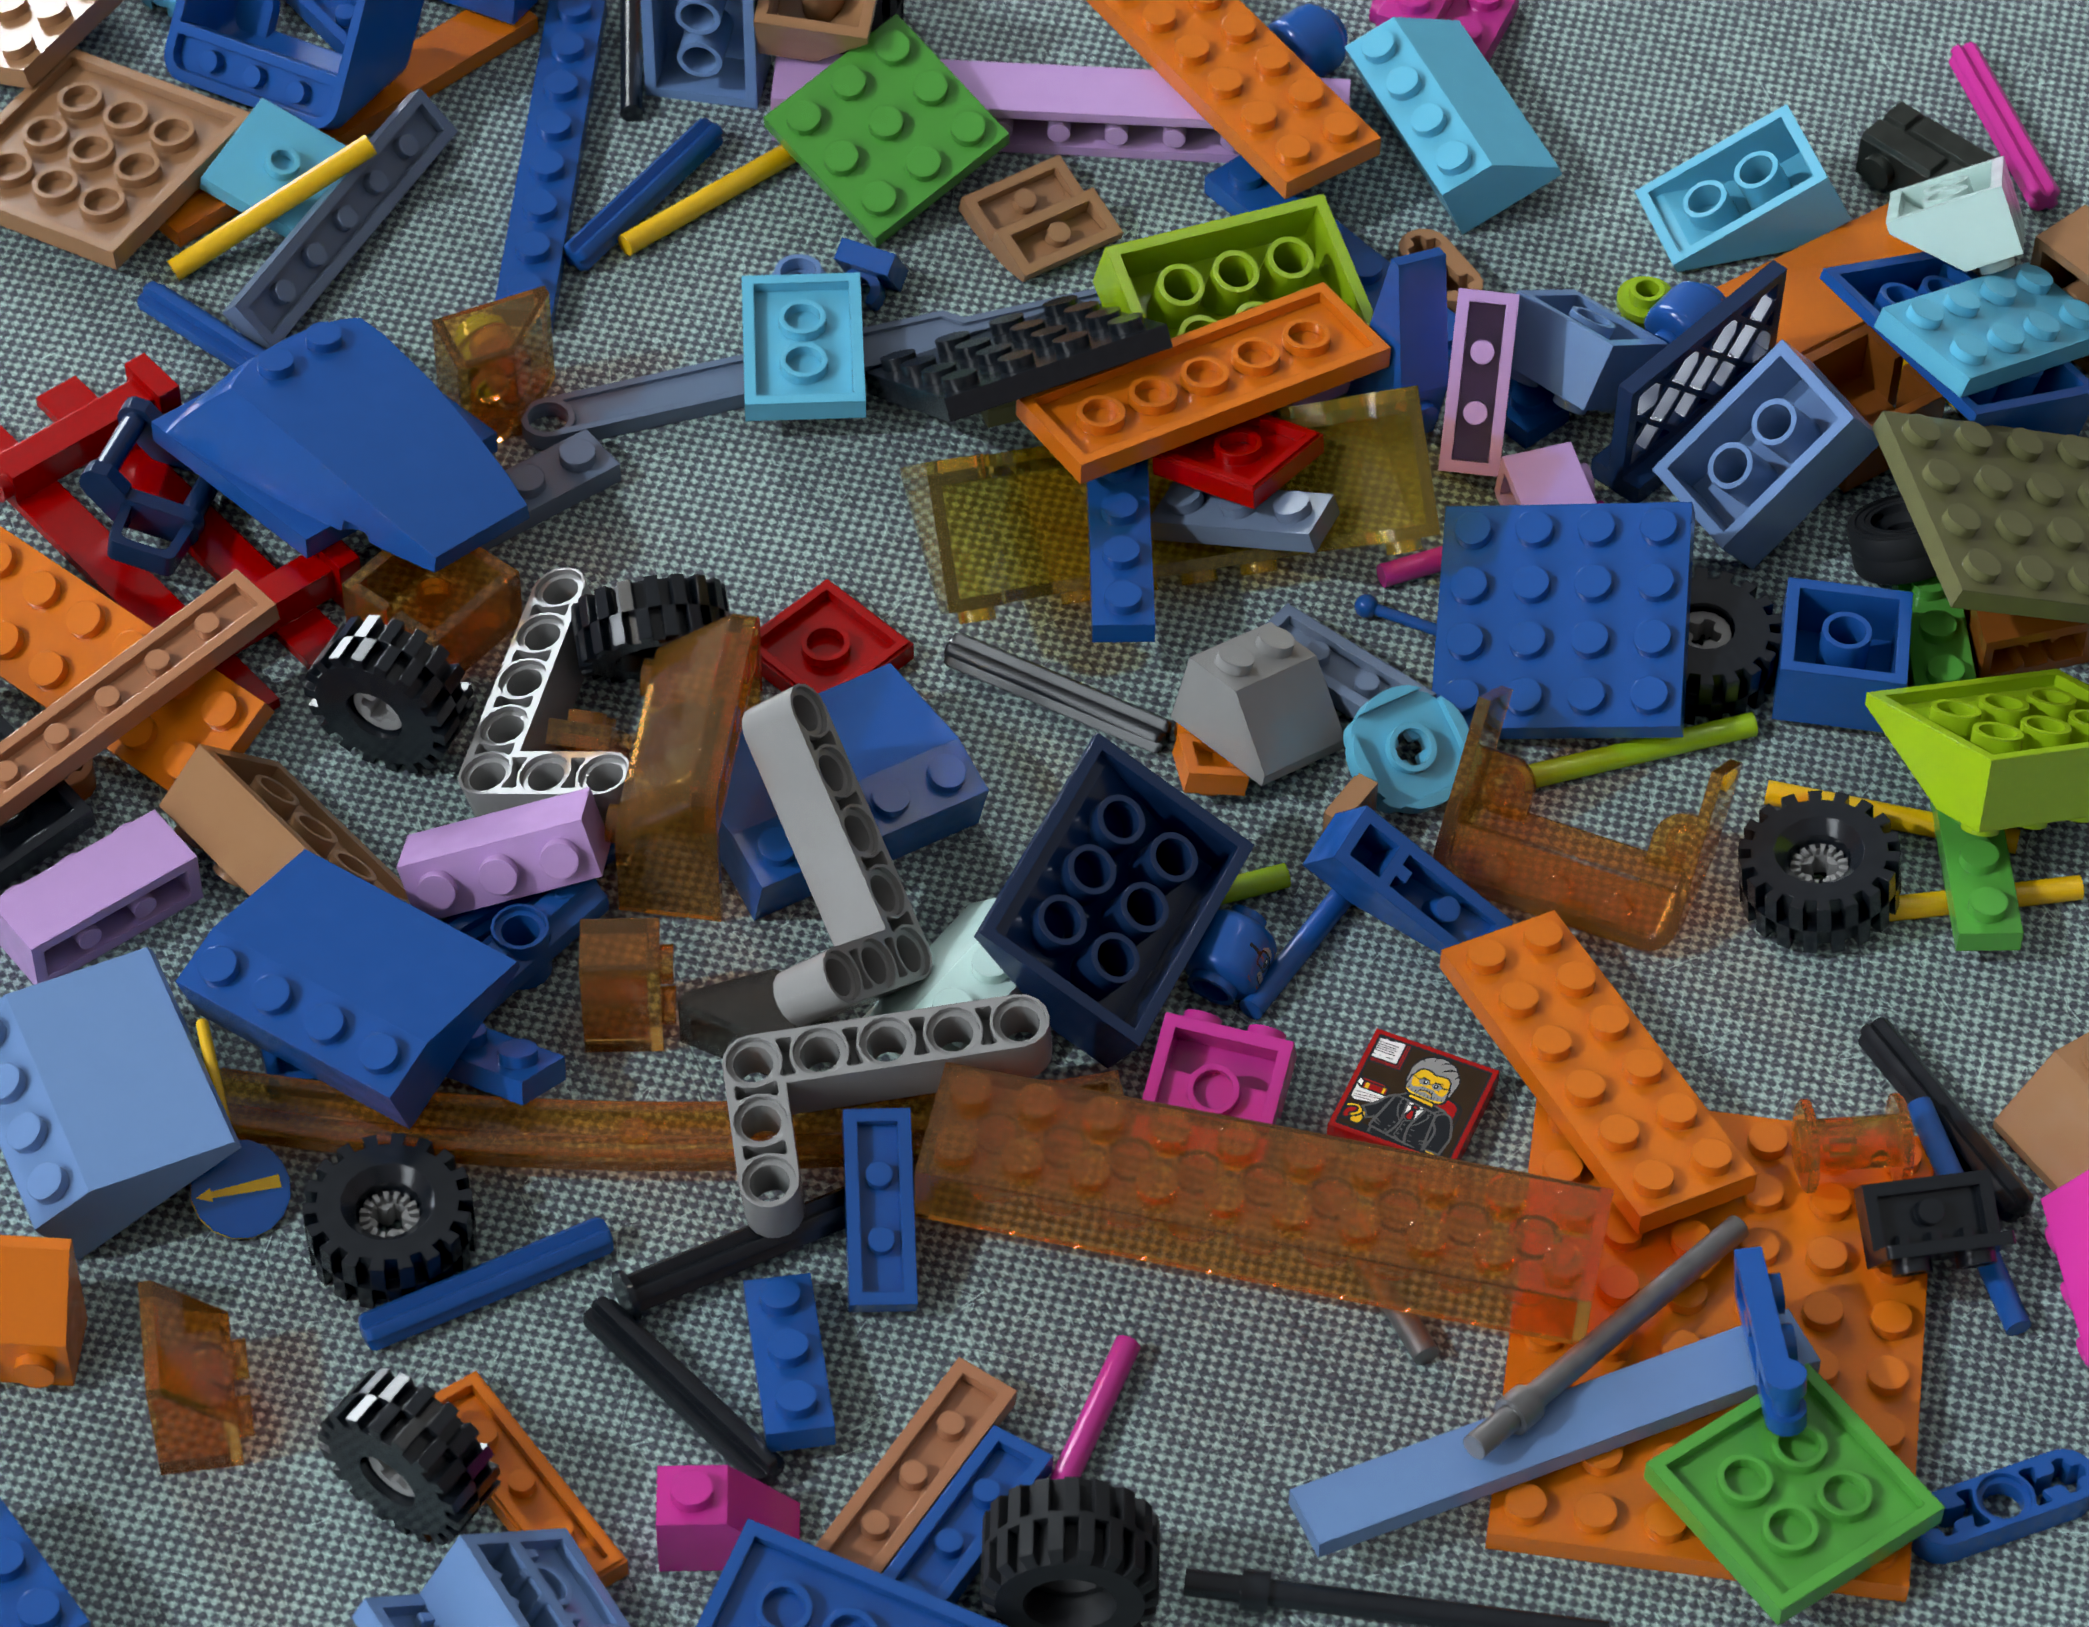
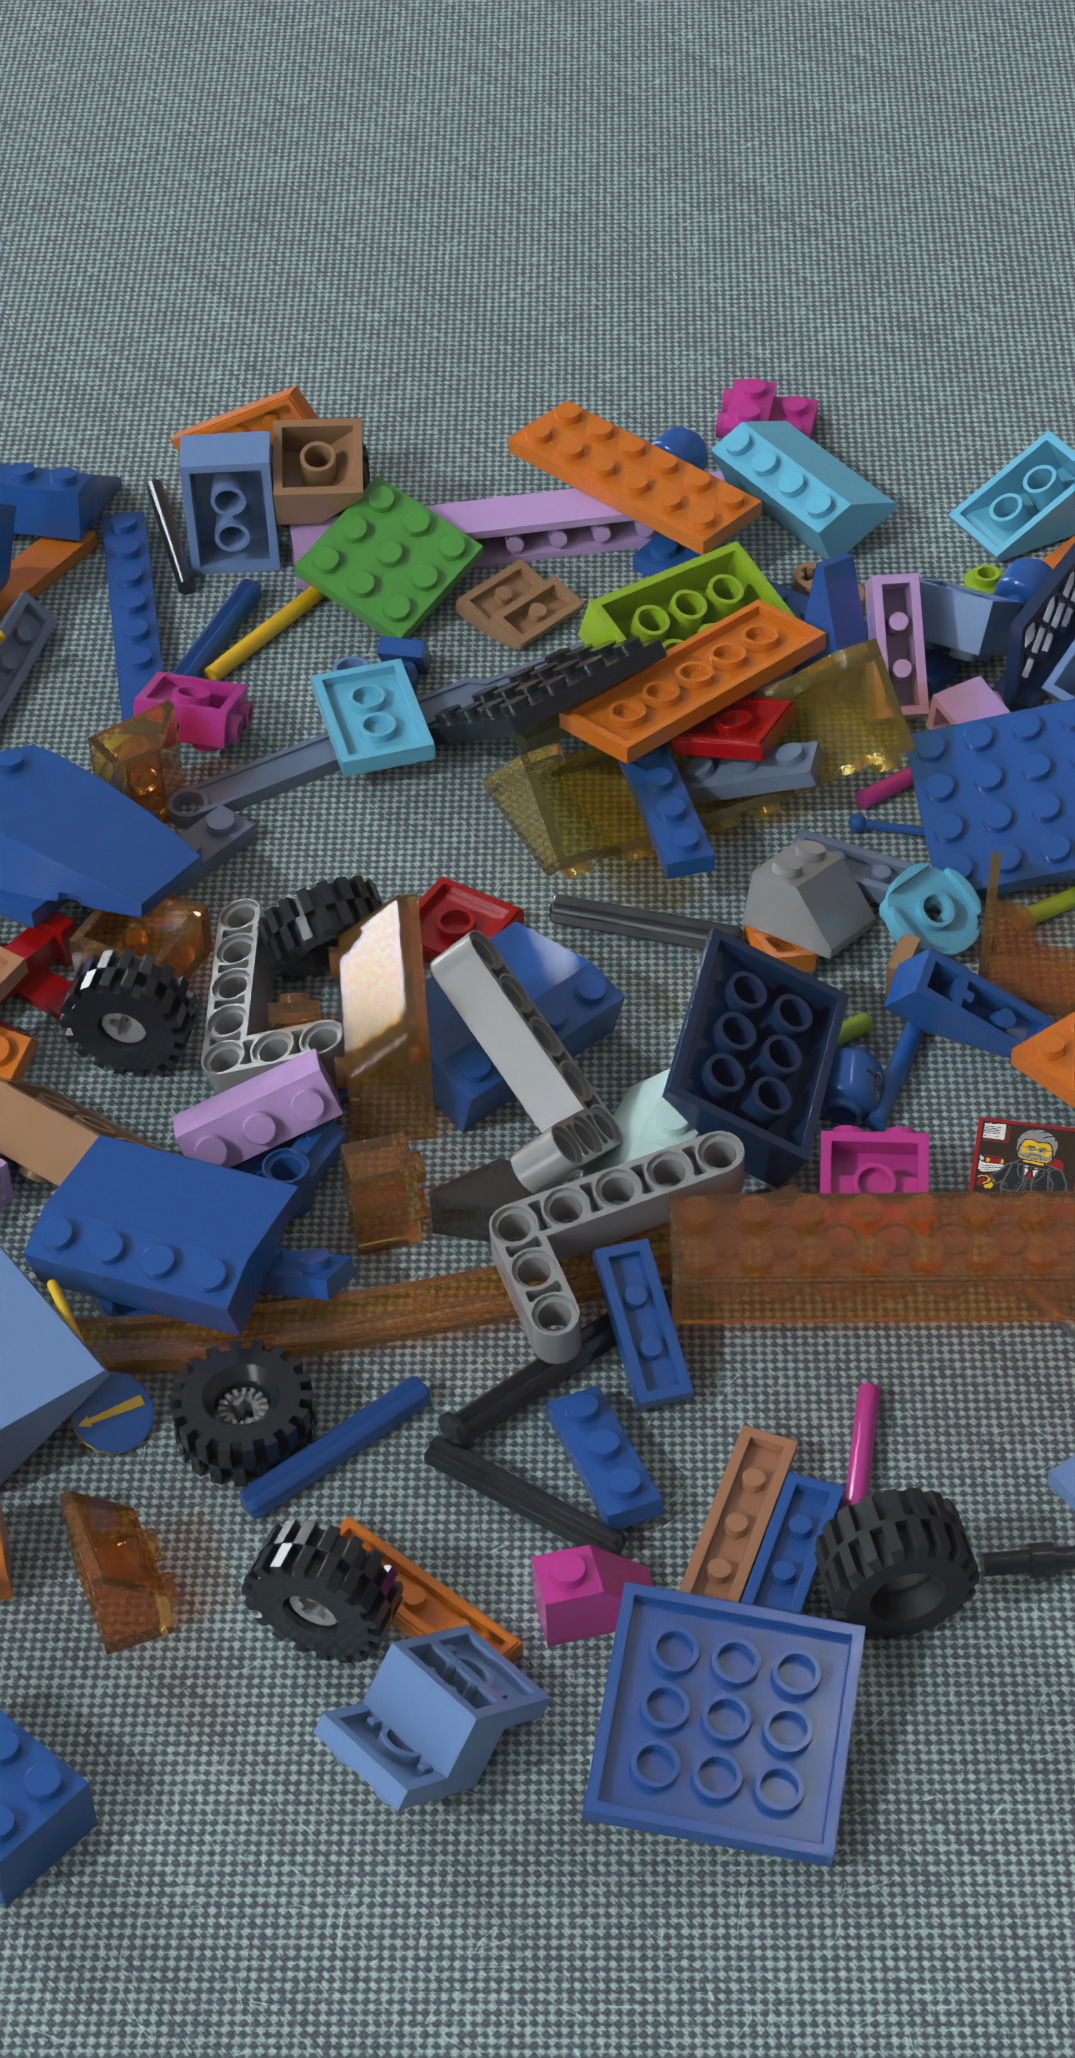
camera: 10 degrees left, 5 degrees down
(591, 292) = (206, 709): none -> dark pink plate

